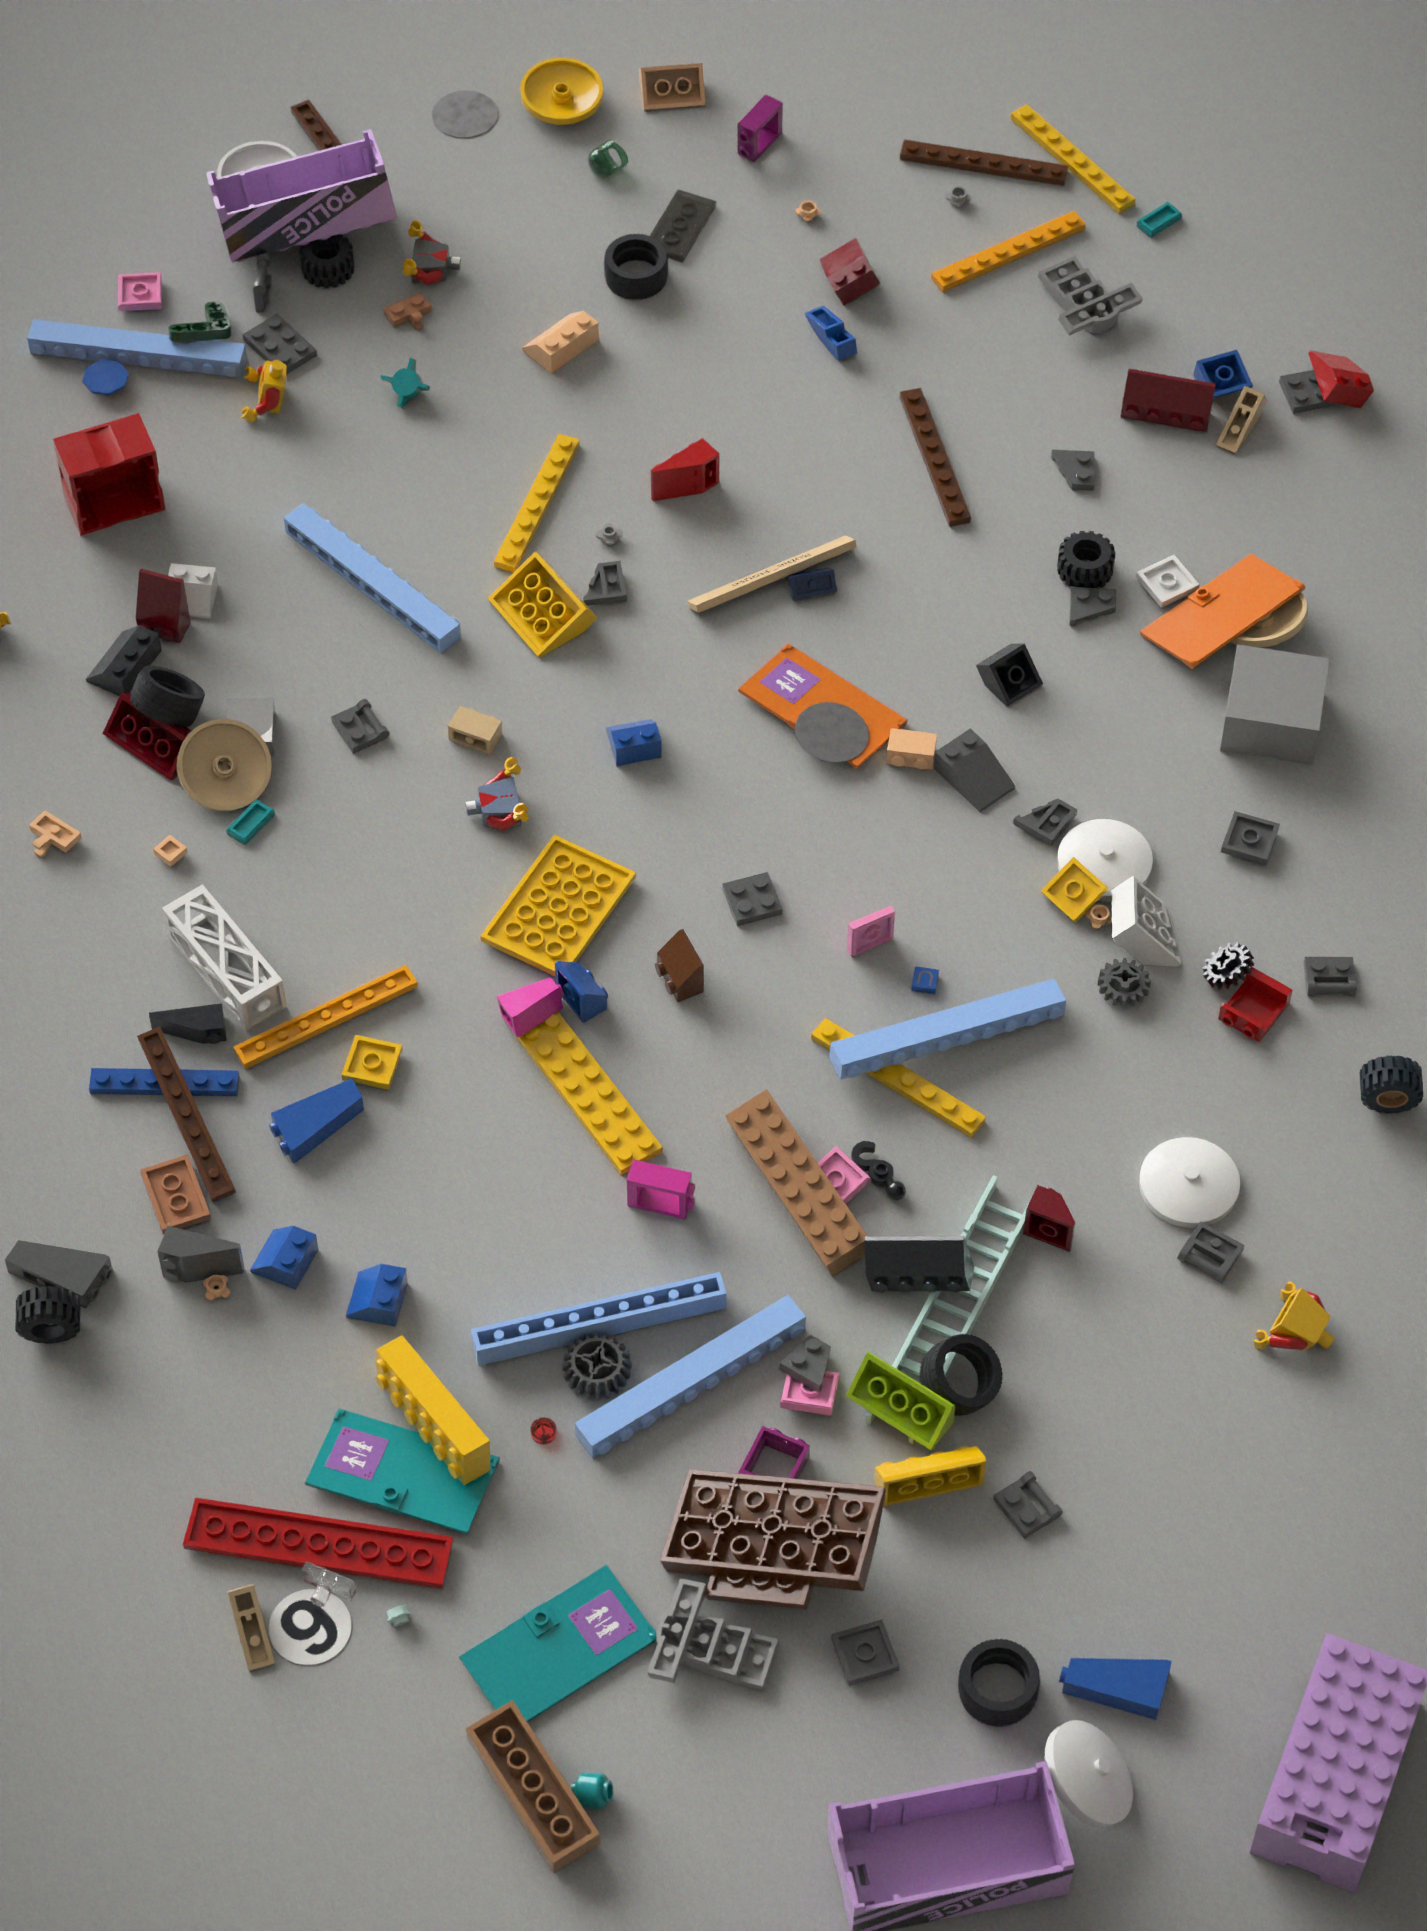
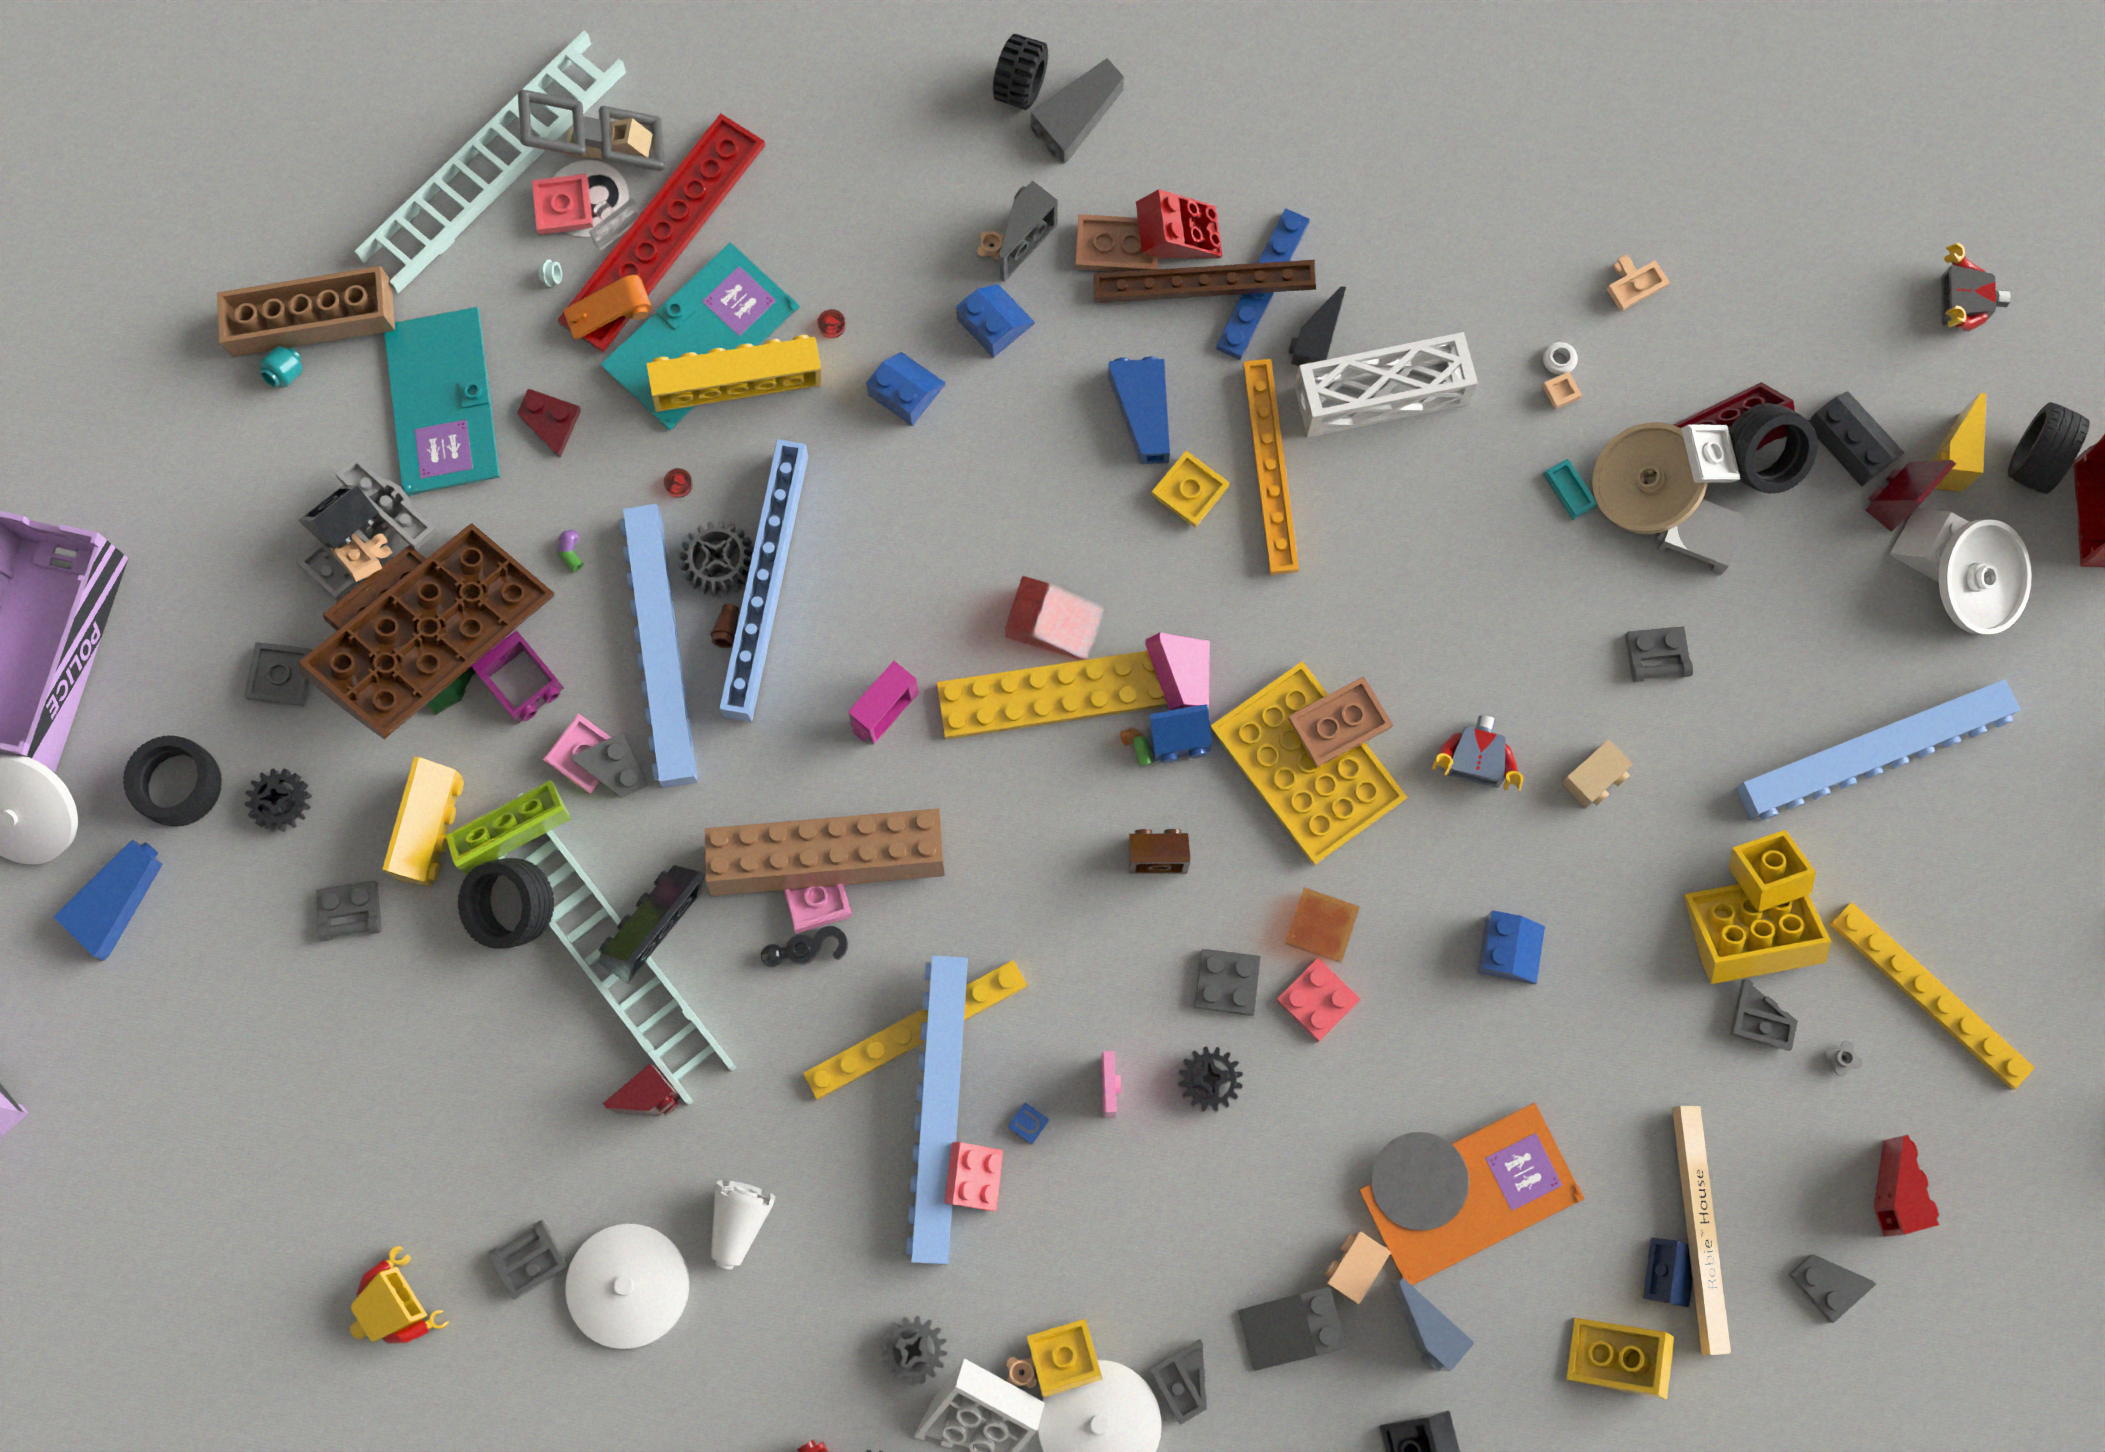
camera: 115 degrees right, 20 degrees up
(90, 520) = (2048, 447): none -> black tyre
(105, 591) = (1965, 447): none -> yellow slope
(144, 869) = (1565, 349): none -> white piece
(145, 1149) = (1178, 226): none -> red slope
(195, 721) = (1710, 453): none -> white tile
(209, 548) = (1985, 576): none -> white dish
(254, 1622) = (590, 131): none -> dark grey bar
(266, 1679) = (496, 126): none -> light aqua ladder
(328, 1634) = (562, 204): none -> coral plate
(344, 1378) = (831, 323): none -> clear red tile
(415, 1540) = (620, 298): none -> orange door
(498, 603) = (1772, 870): none -> yellow brick
(519, 889) = (1340, 722): none -> nougat plate
(529, 1115) = (1053, 619): none -> clear red slope
(534, 1555) = (549, 418): none -> dark red wing
(596, 1025) = (1140, 743): none -> bright green arm
(643, 1485) = (566, 550): none -> arm
(652, 1335) = (725, 626): none -> copper cone
(678, 854) = (1322, 925): none -> clear orange plate
(709, 1650) = (340, 516): none -> black slope
(734, 840) = (1318, 999): none -> coral plate
(737, 1619) = (360, 557): none -> light nougat plate
(769, 498) = (1830, 1286): none -> dark grey wing
(830, 879) = (1223, 1078): none -> black gear
(884, 587) = (1620, 1357): none -> yellow slope
(930, 689) = (1432, 1331): none -> sand blue slope
(968, 1607) = (268, 792): none -> black gear
(988, 987) = (973, 1176): none -> coral plate
(1101, 1123) = (736, 1221): none -> white cone

